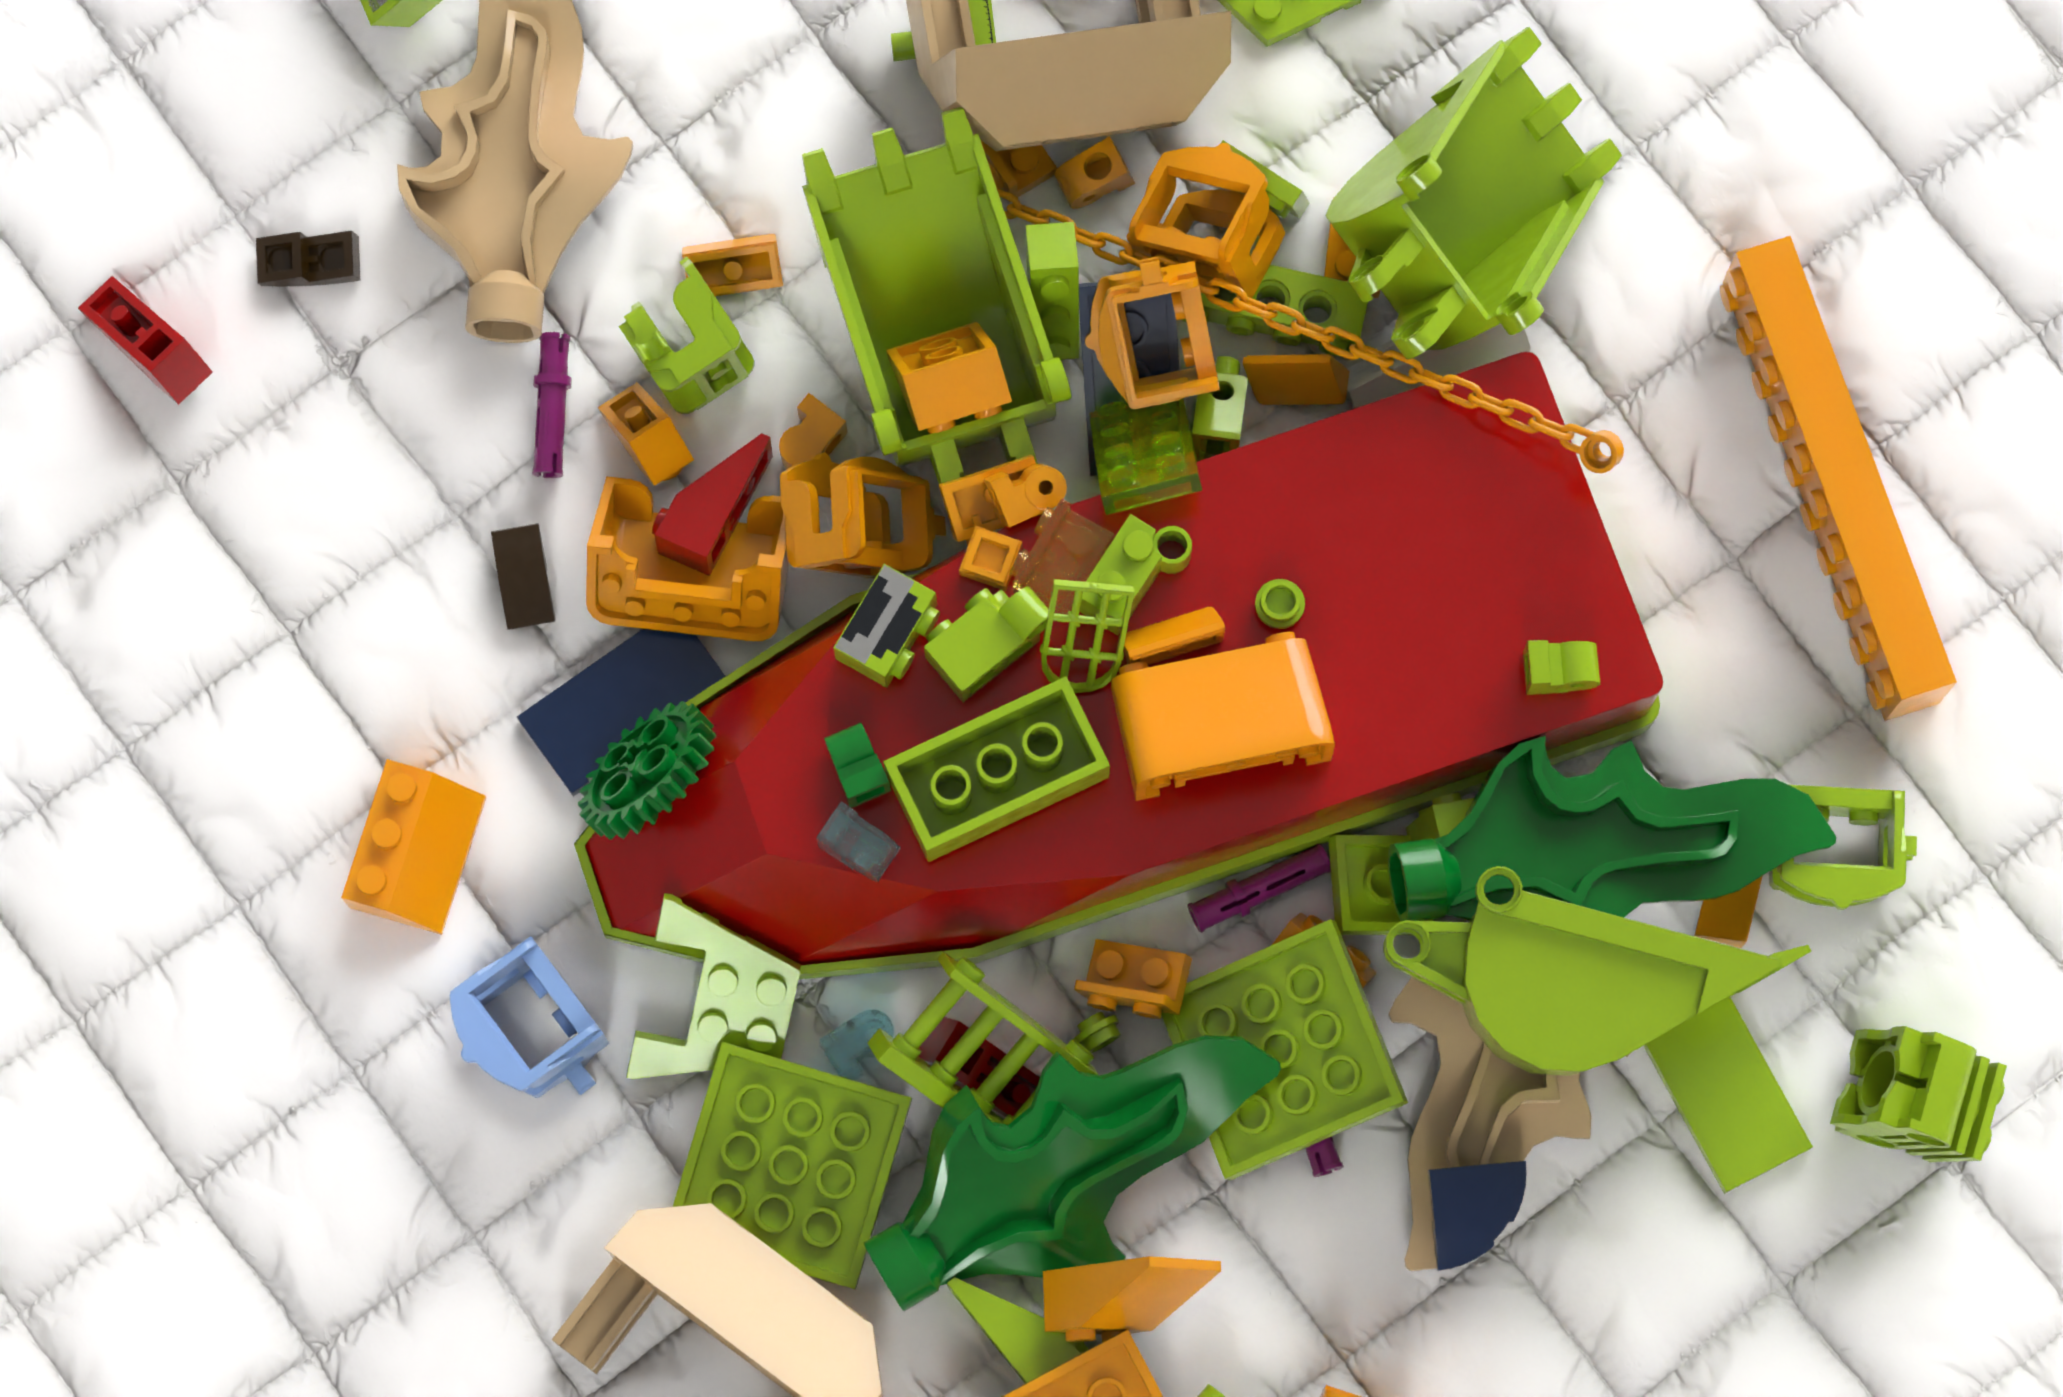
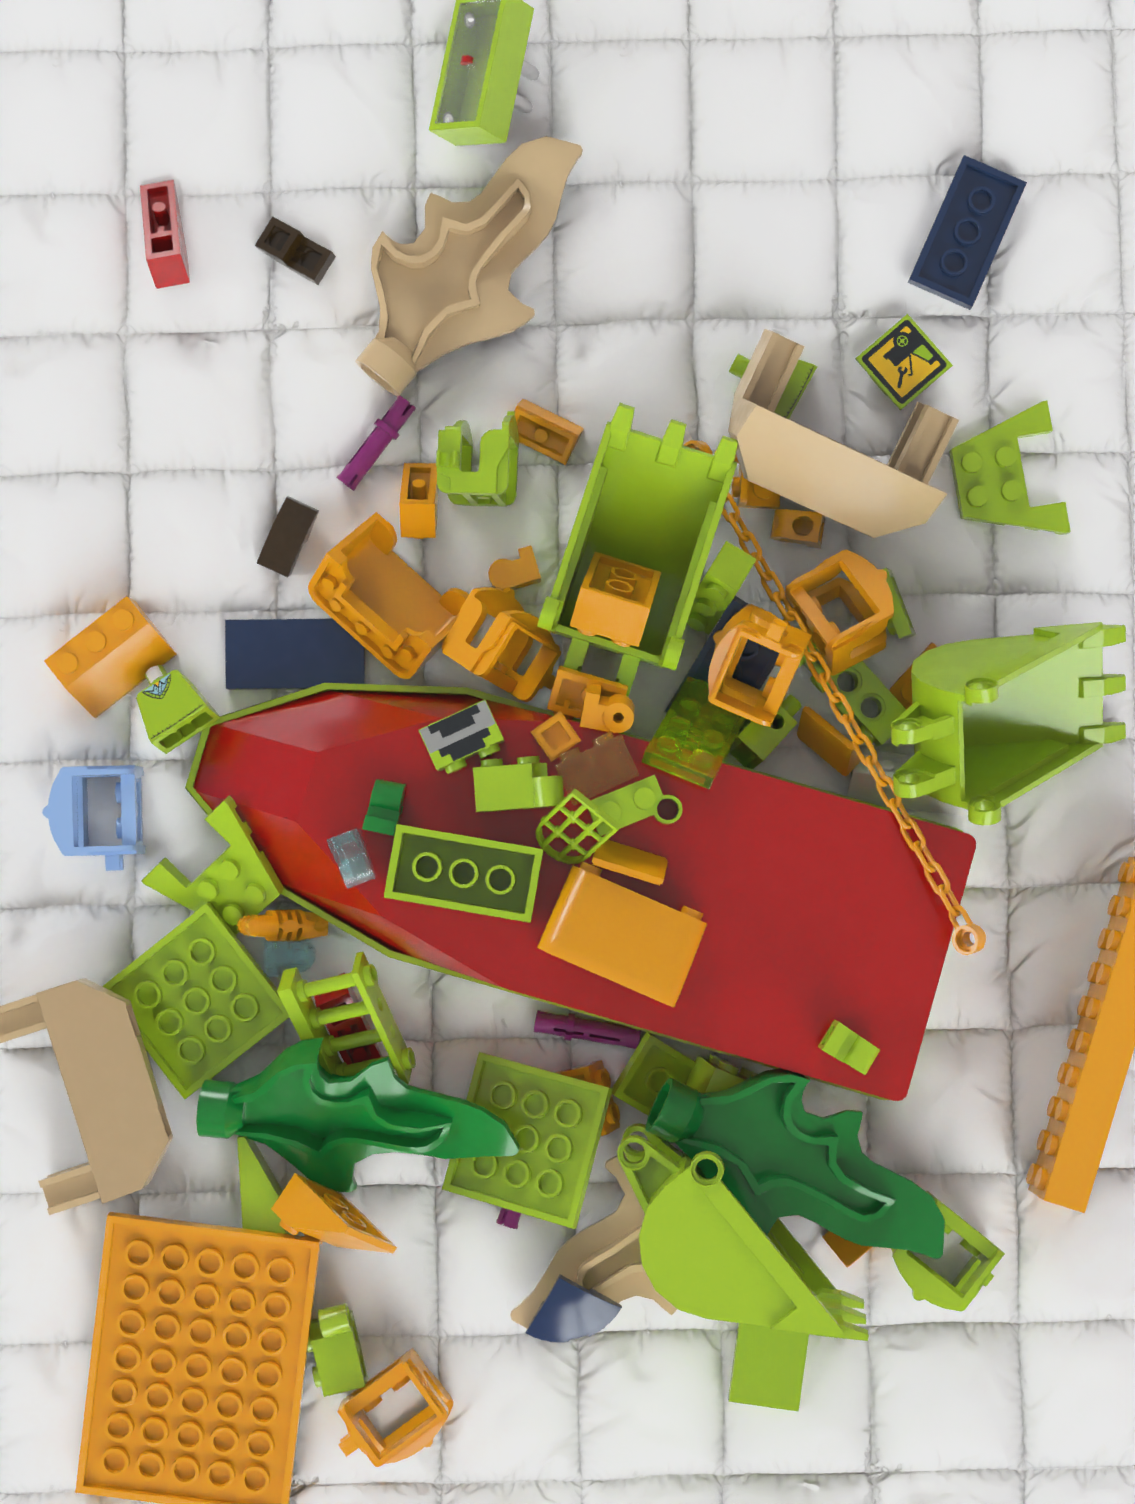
camera: 30 degrees right, 10 degrees up
(529, 850) = (173, 708): none -> lime torso
(646, 770) = (269, 713): green gear -> none
(709, 509) = (421, 575): red slope -> none
(828, 1008) = (284, 925): none -> light orange hinge
(1098, 1031) = (430, 1048): lime plate -> none
(1135, 978) = (474, 1033): light orange bracket -> none
(1280, 603) = (708, 888): lime plate -> none
(1920, 1094) = (880, 1435): lime piece -> none

